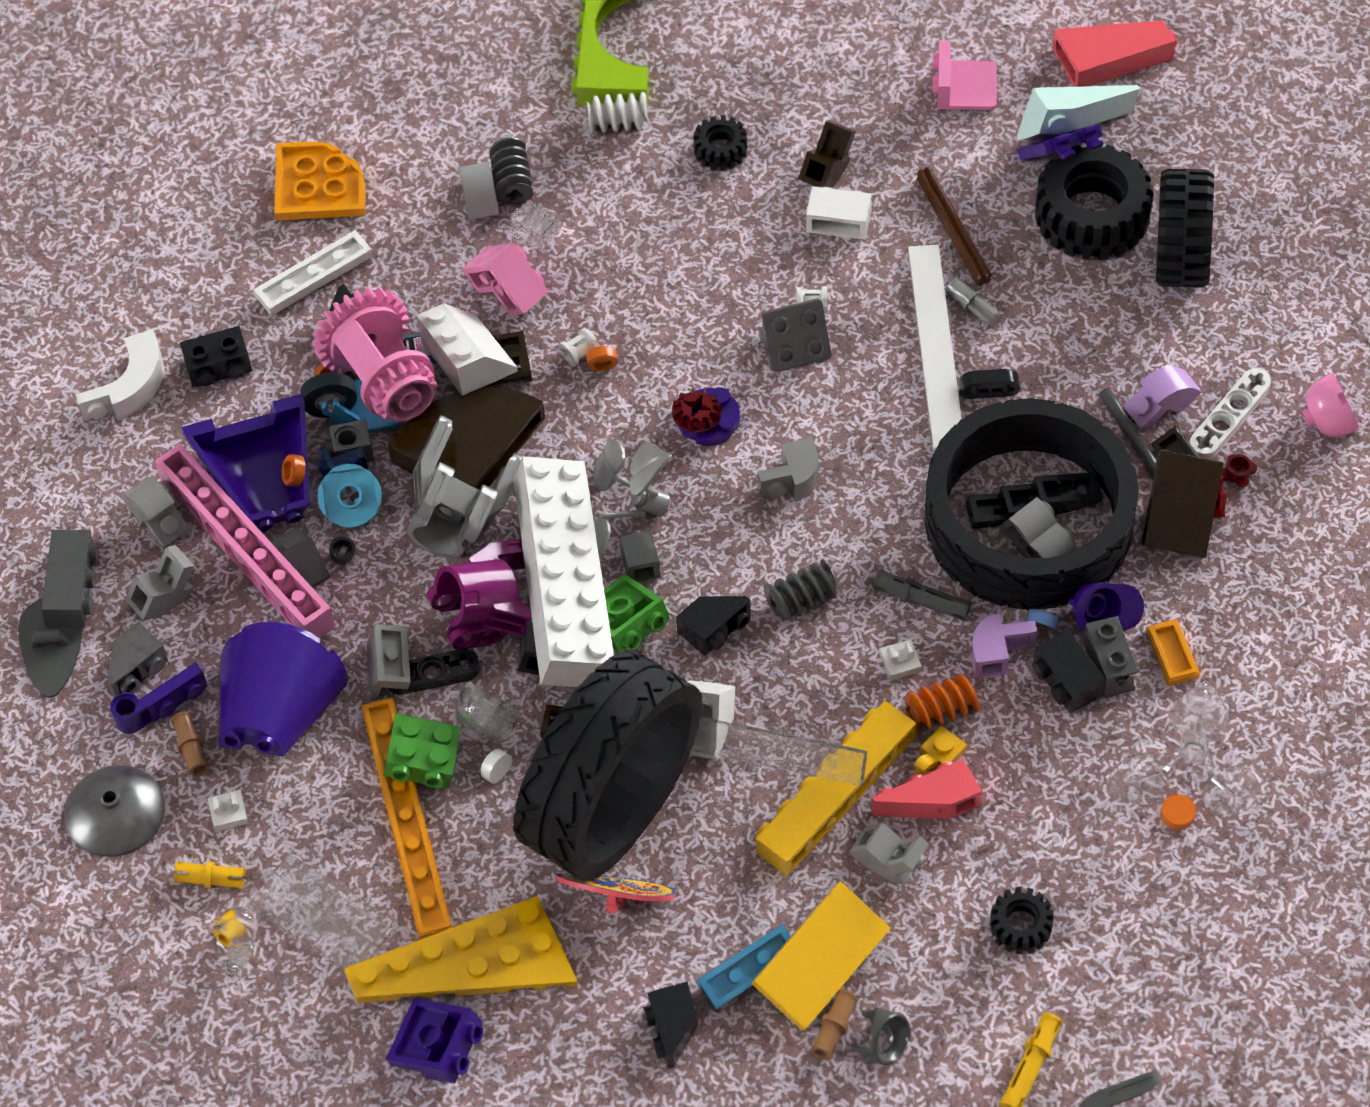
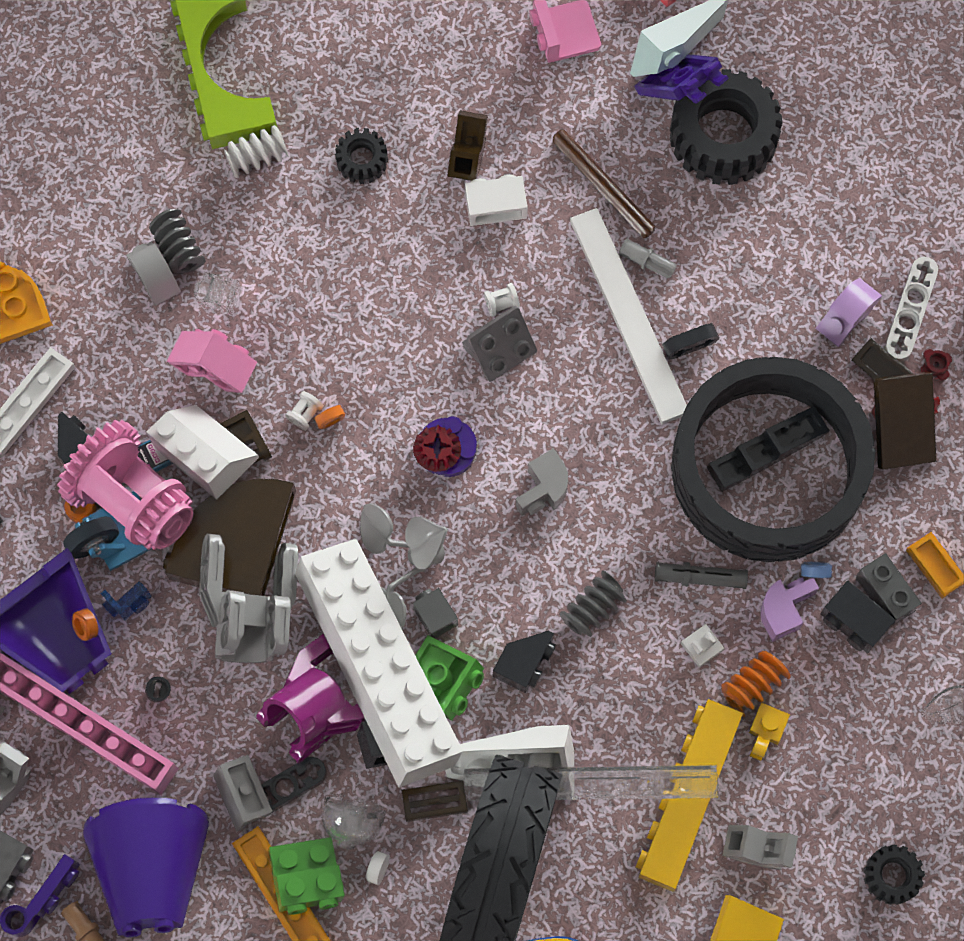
camera: 20 degrees left, 15 degrees up
(303, 556) = (121, 708): dark grey slope -> none
(351, 433) = (131, 563): dark grey brick -> none
(364, 507) = (140, 649): medium azure plate -> none
(936, 795) = (783, 774): coral slope -> none
(1038, 532) = (787, 486): light grey brick -> none
(1105, 601) = (866, 541): dark purple piece -> none
(1129, 429) = (833, 355): dark grey bar -> none
(1185, 228) = (823, 140): black tyre -> none

